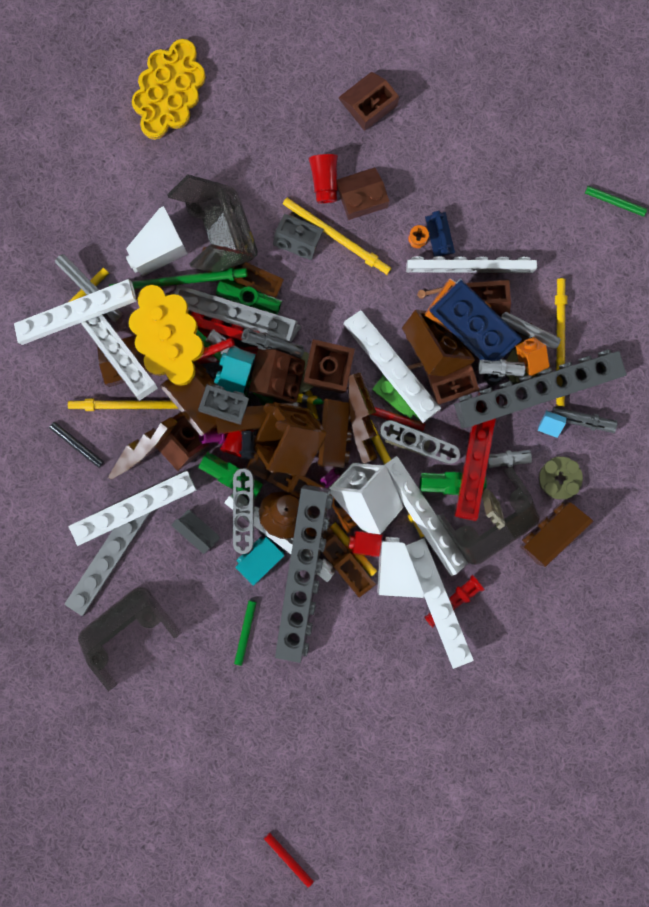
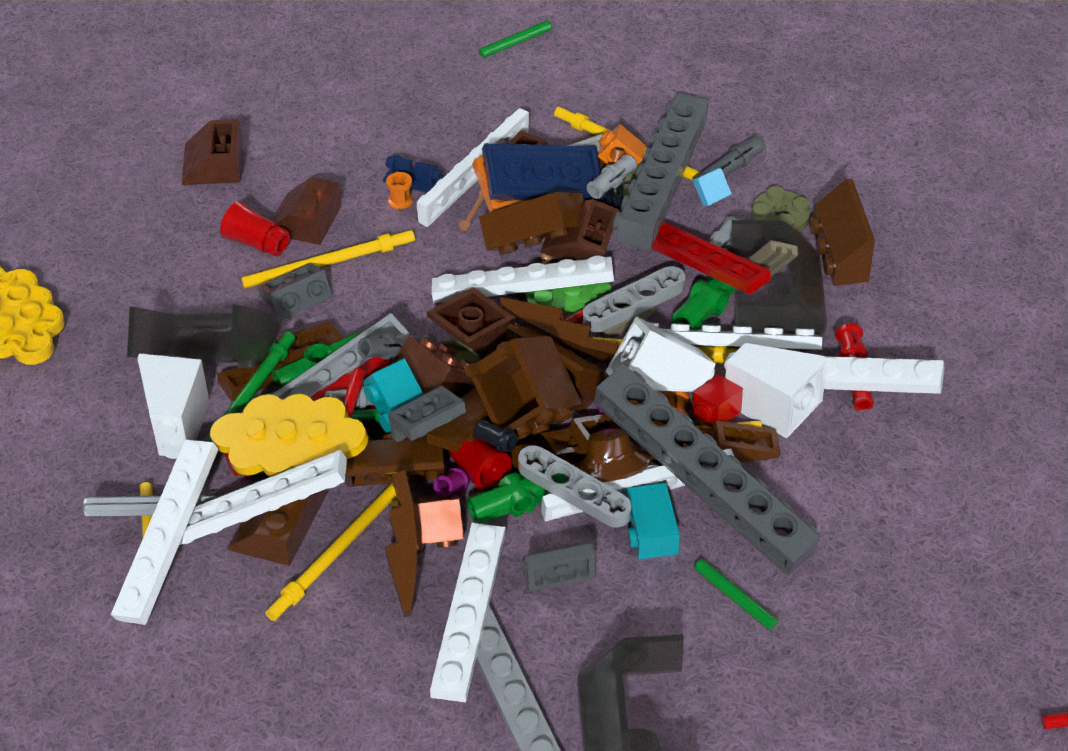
camera: 55 degrees left, 40 degrees down
(76, 444) = (329, 639): black bar -> none

